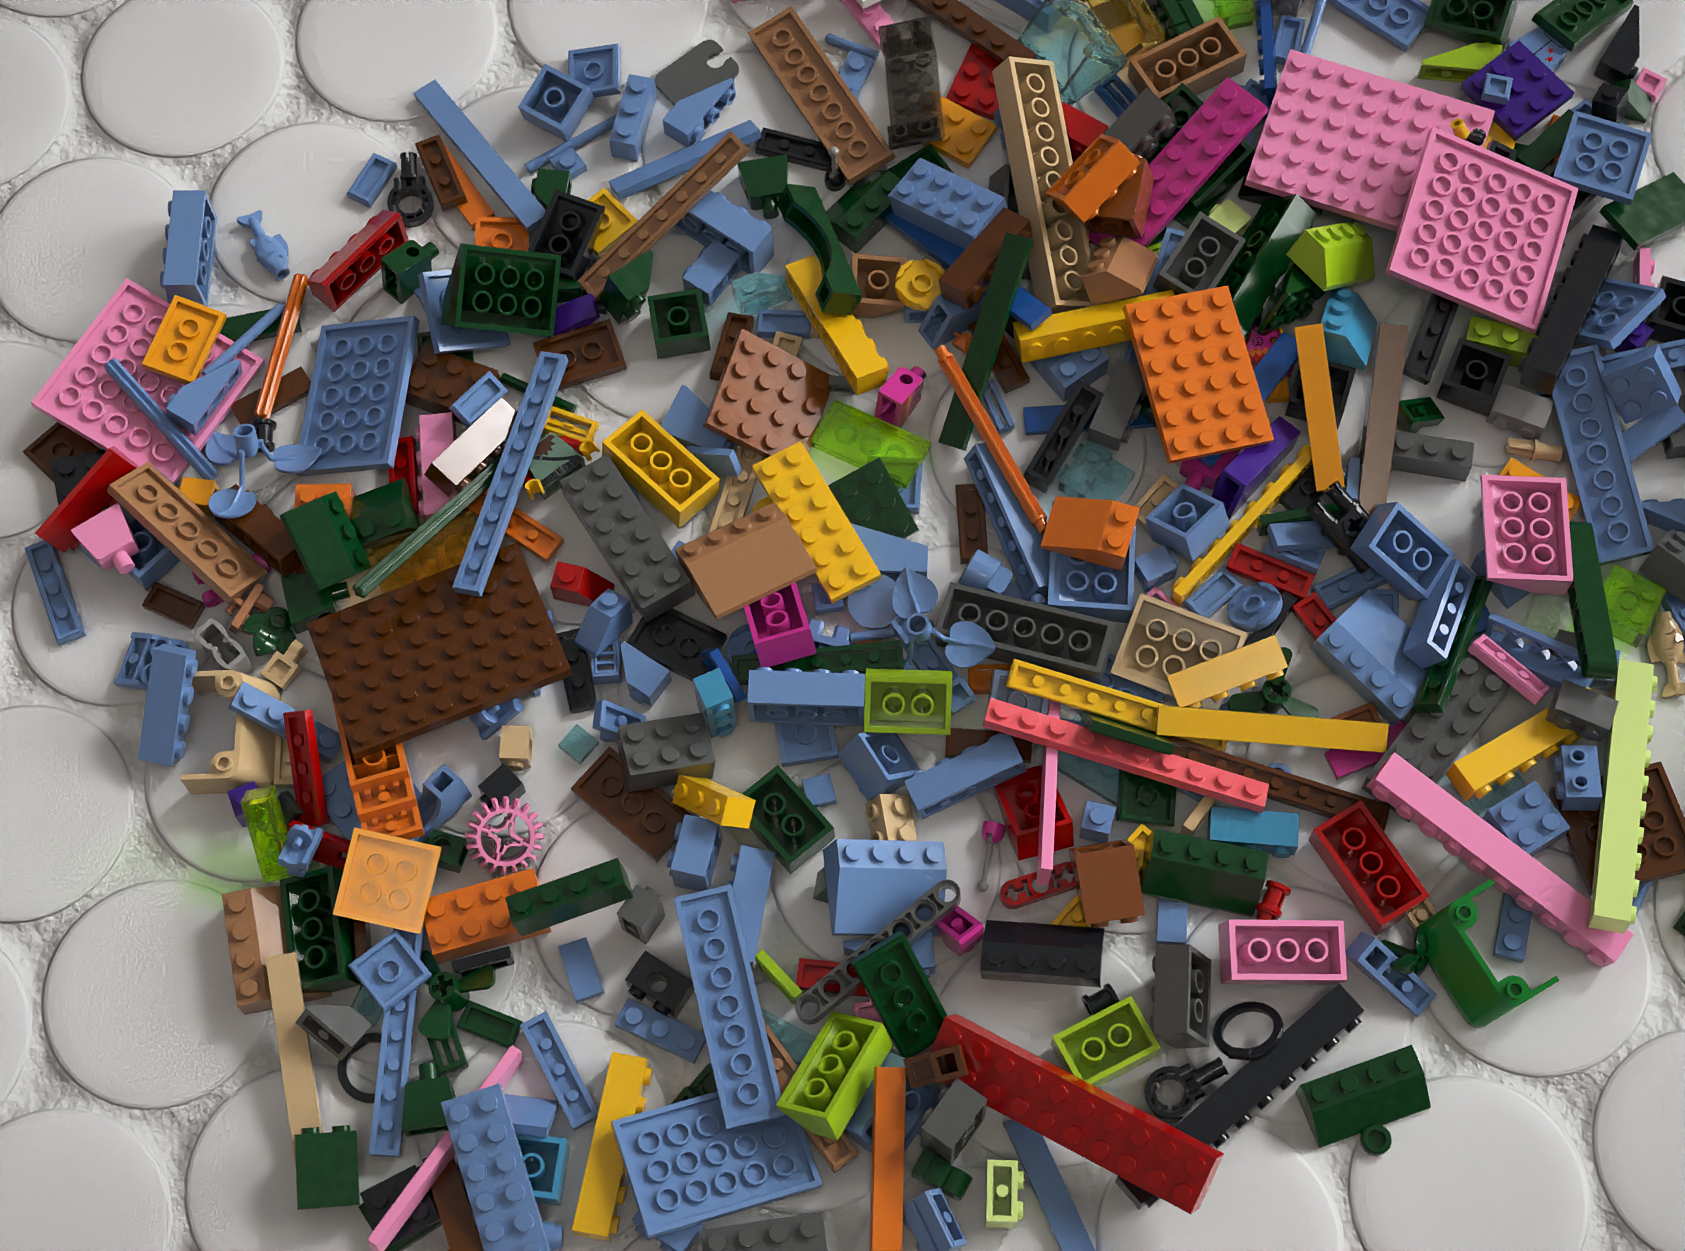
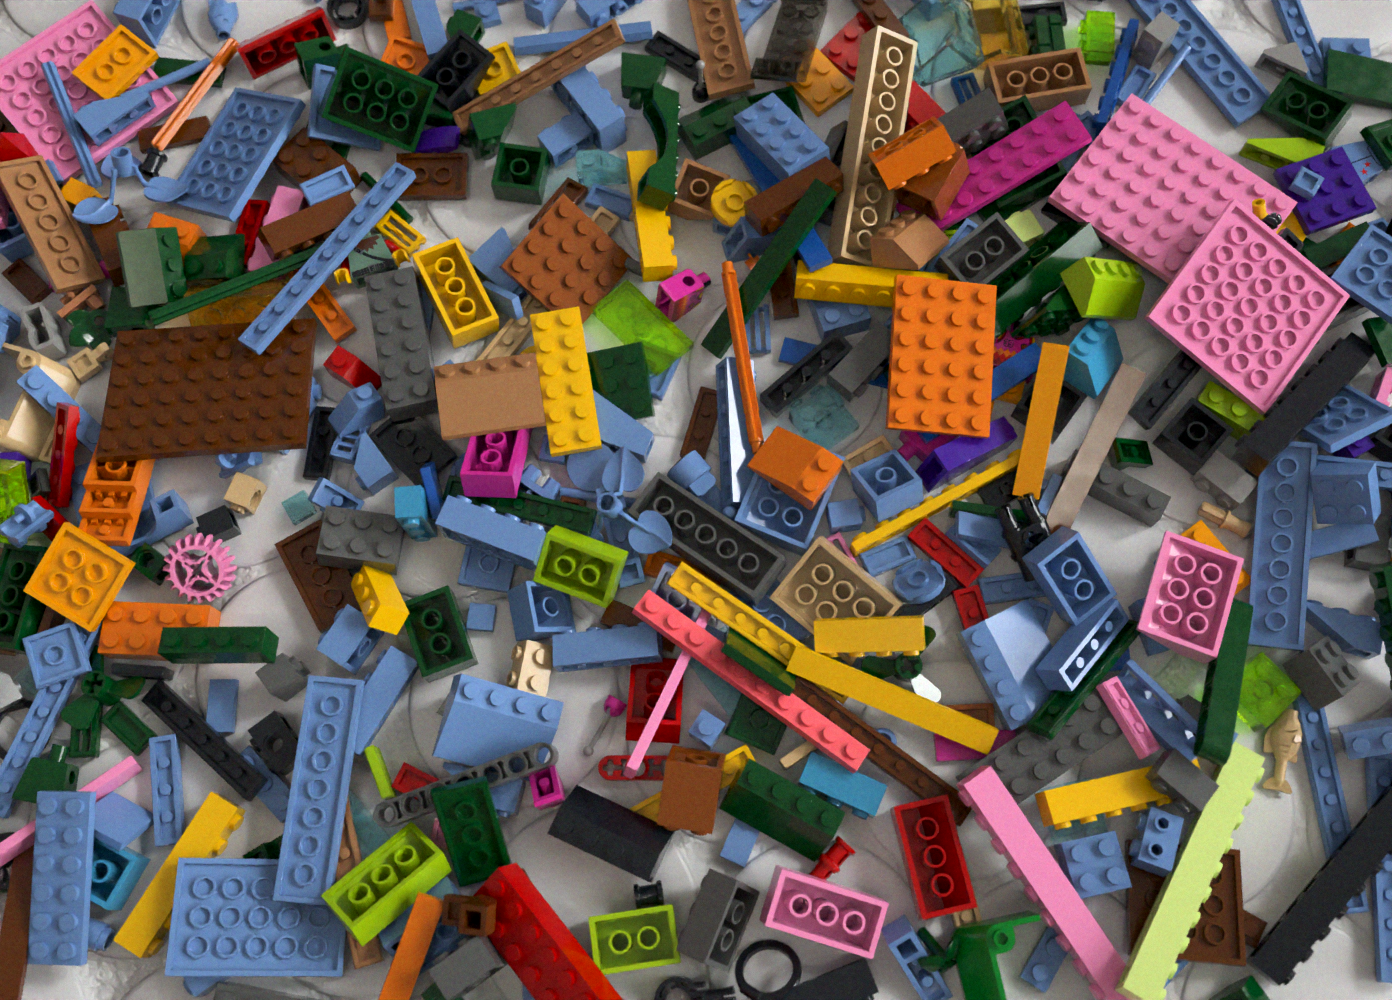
camera: 20 degrees right, 5 degrees up
(579, 1007) = (205, 740): none -> black tile

